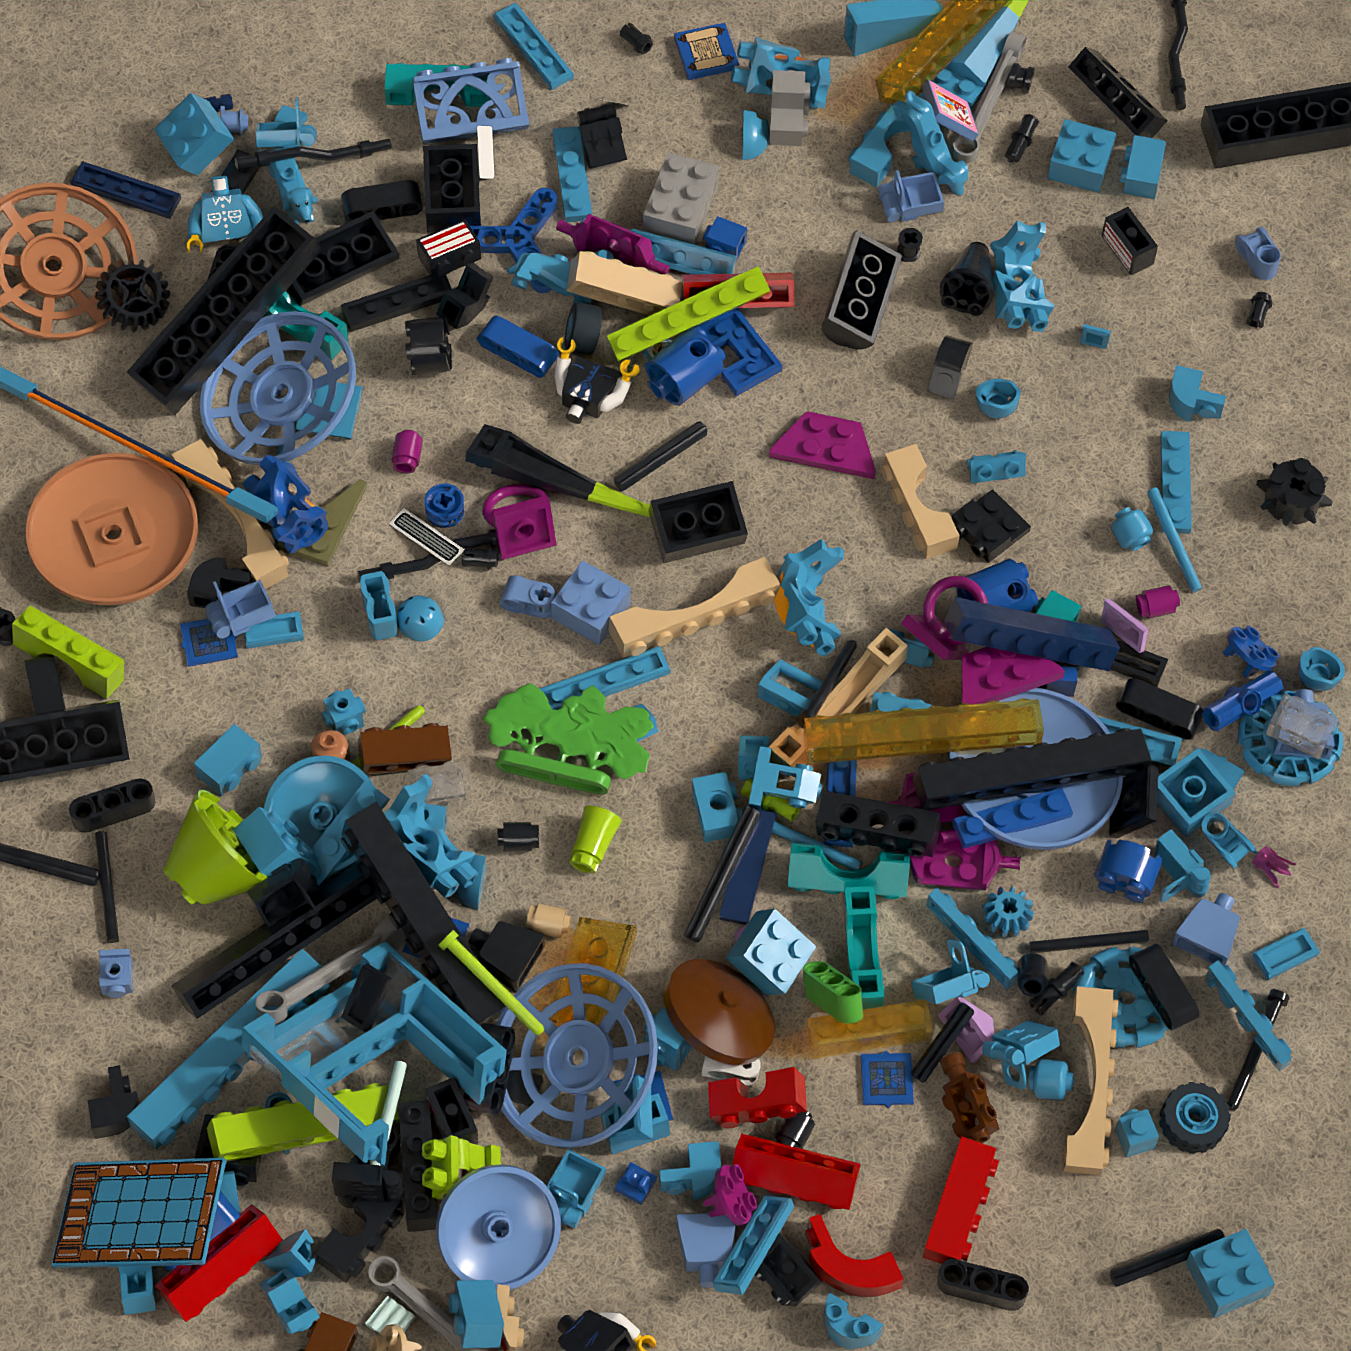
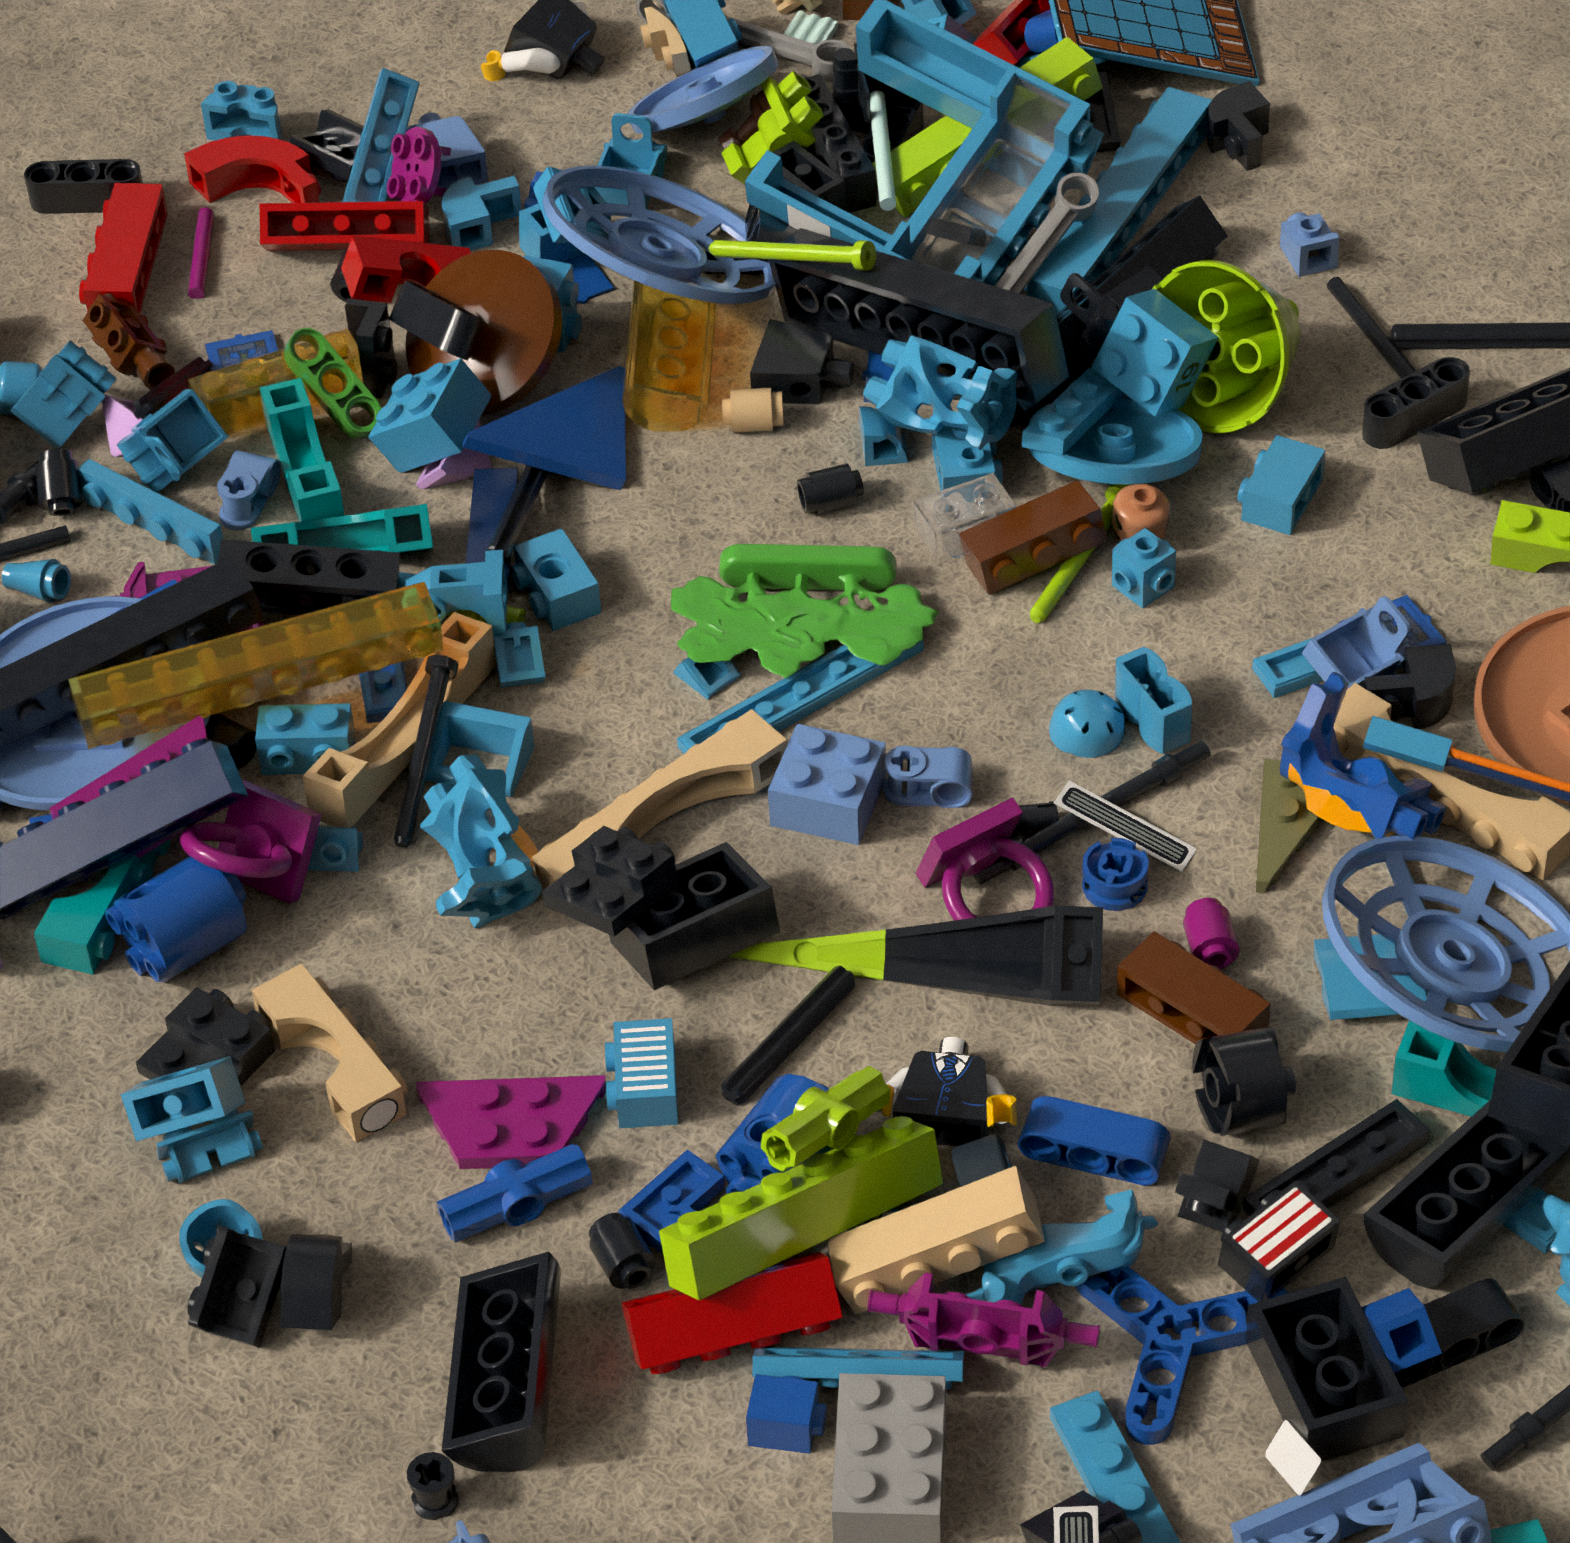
camera: 170 degrees right, 15 degrees down
(409, 184) = (1402, 1329): none -> blue brick
(432, 413) = (1187, 992): none -> reddish brown brick
(593, 838) = (720, 508): lime plant -> none
(665, 332) = (825, 1118): none -> lime piece
(676, 923) = (567, 433): none -> blue tile
(740, 531) = (613, 880): none -> black plate
(742, 989) = (436, 320): none -> black beam
(747, 444) = (644, 1073): none -> dark azure brick
(786, 345) = (621, 1251): none -> black brick
(795, 1041) = (374, 339): none -> black bracket
(834, 393) = (514, 1192): none -> blue piece
(902, 947) = (246, 488): none -> medium blue piece
(903, 1199) = (201, 253): none -> magenta bar
(969, 281) = (303, 1435): black cone -> none
(992, 364) = (237, 1287): none -> black bracket
(996, 462) = (183, 1098): none -> dark azure brick
(1003, 920) = (102, 552): dark azure gear -> none
(1013, 261) = (215, 1491): dark azure hips -> none
(1054, 903) = (39, 579): none -> dark azure cone
(1095, 336) = (54, 1410): dark azure slope -> none

